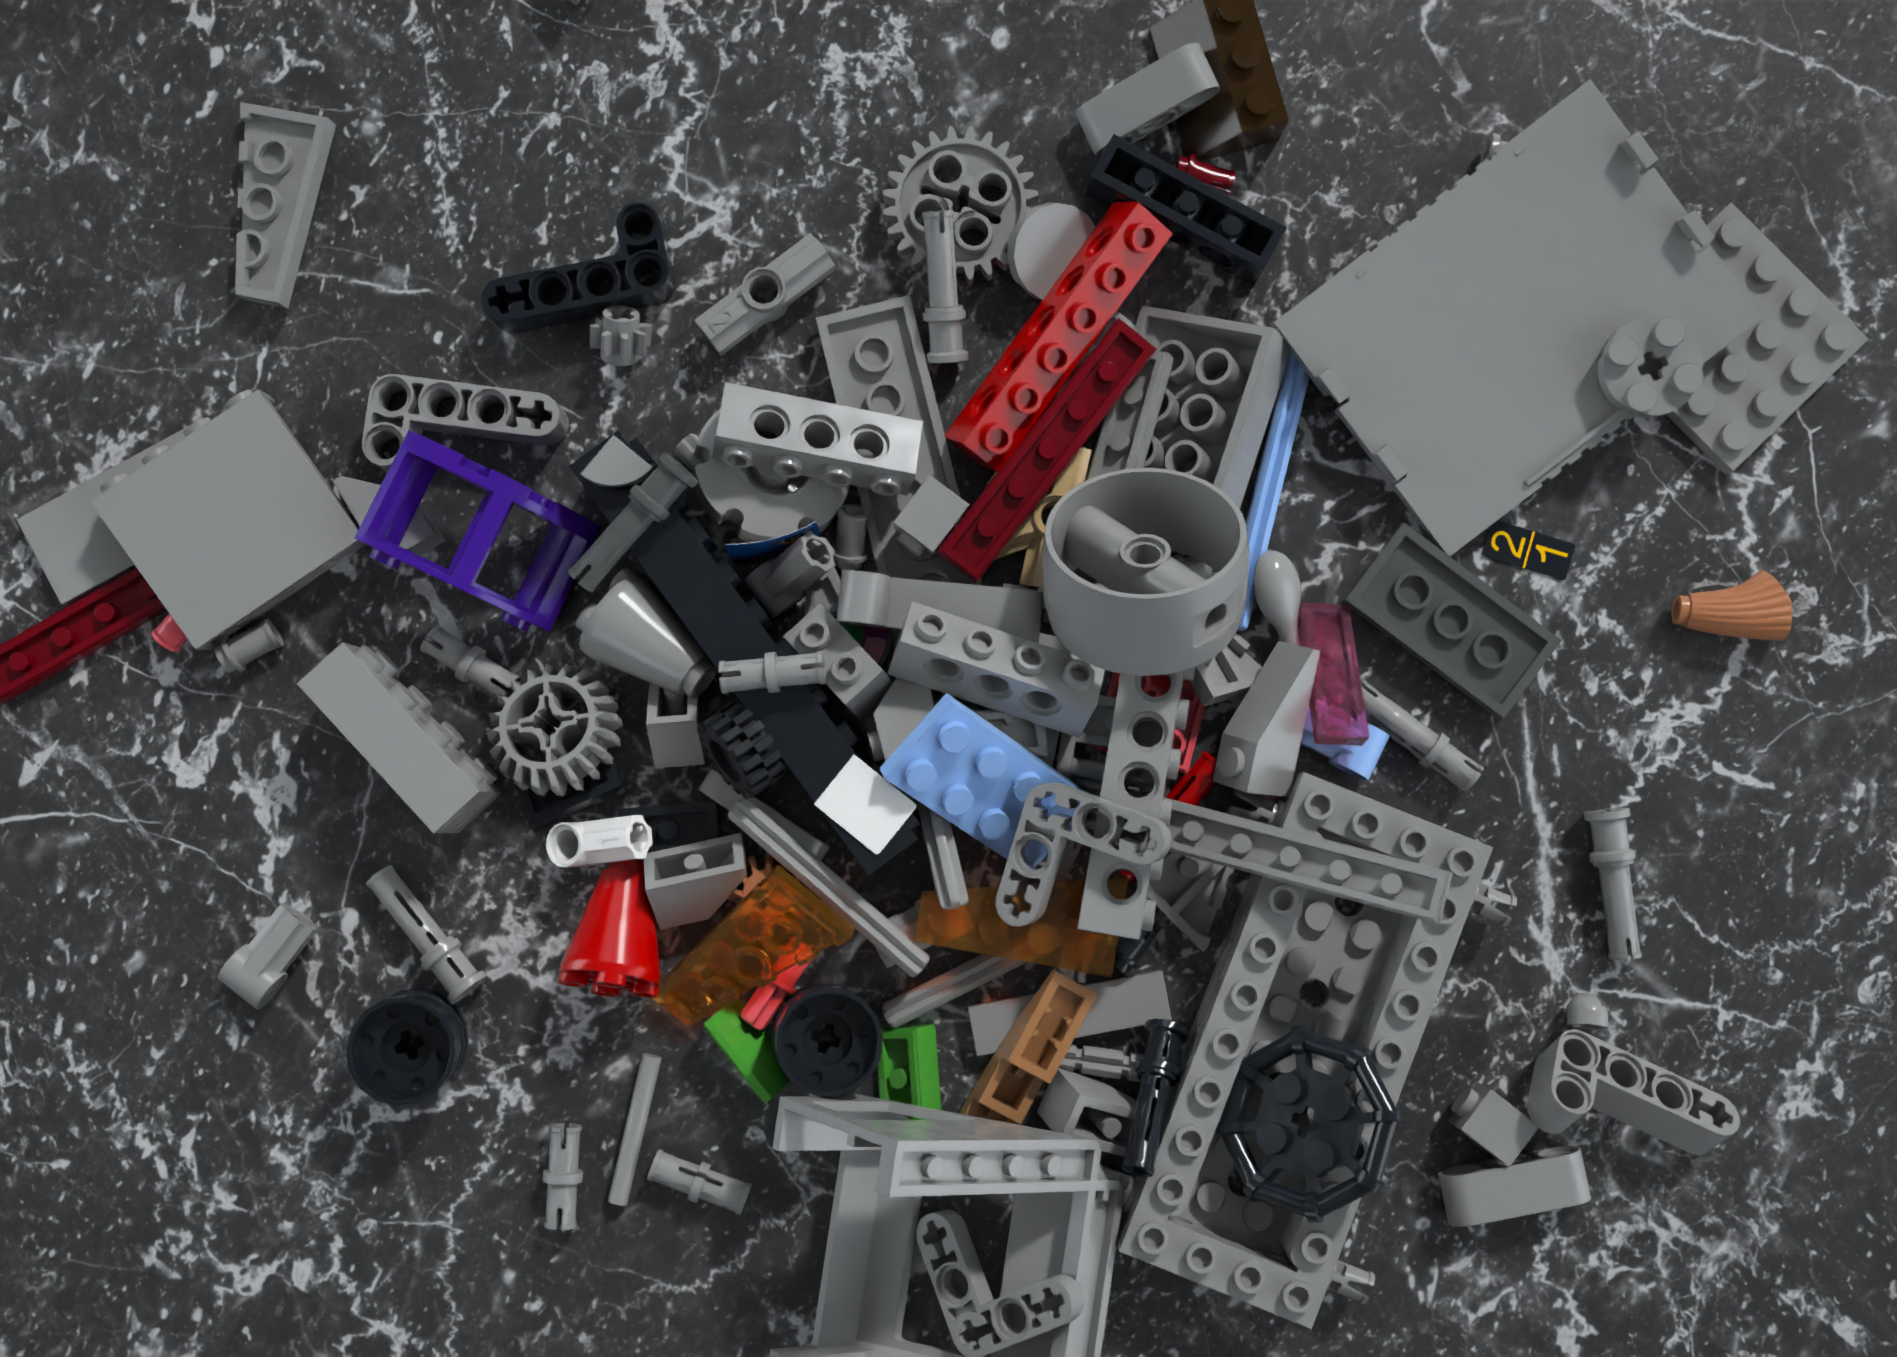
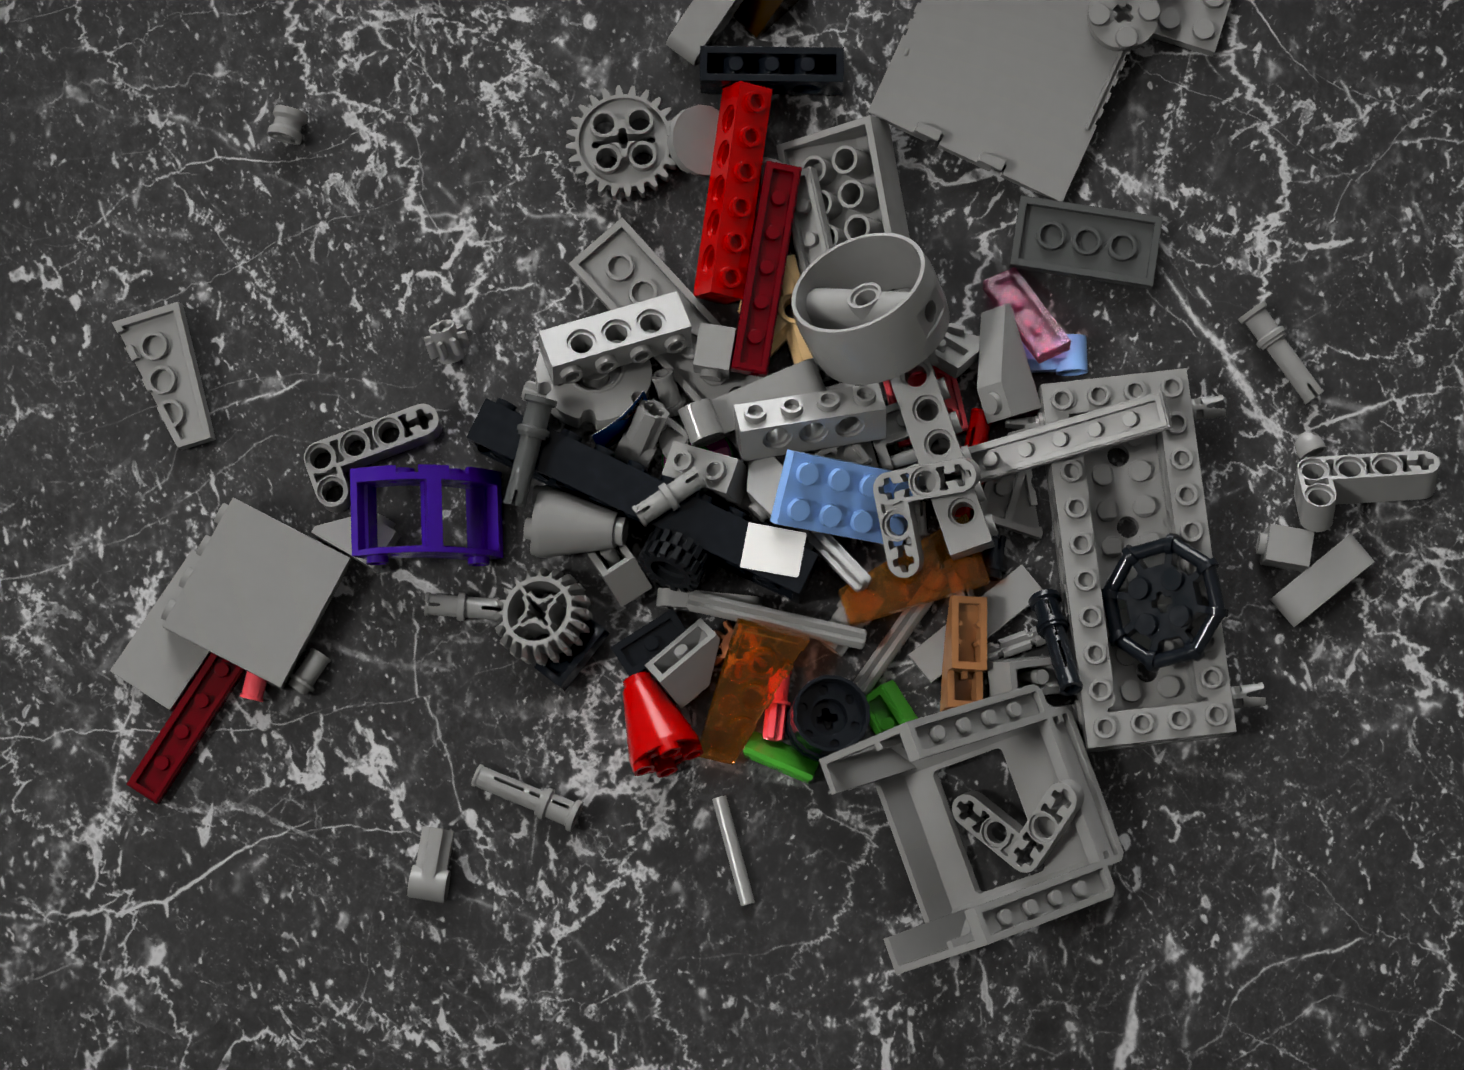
camera: 20 degrees left, 5 degrees down
(401, 737) = (446, 673): light grey brick -> none
(402, 1074) = (558, 845): black wheel -> none
(562, 1176) = (703, 905): light grey pin -> none
(580, 277) = (398, 320): black beam -> none
(599, 841) = (612, 671): white piece -> none
(616, 466) = (499, 419): light grey tile -> none
(699, 1182) = (794, 861): light grey pin -> none
(790, 274) = (537, 246): light grey piece -> none
(944, 312) = (650, 215): light grey pin -> none
(1207, 173) = (774, 39): dark red pin -> none
(1273, 470) = (920, 210): light blue axle -> none
(1278, 593) = (965, 282): light grey piece -> none
(1420, 740) = (1109, 329): light grey pin -> none
(1528, 550) = (1112, 171): black sticker -> none
(1749, 610) = (1271, 136): nougat piece -> none

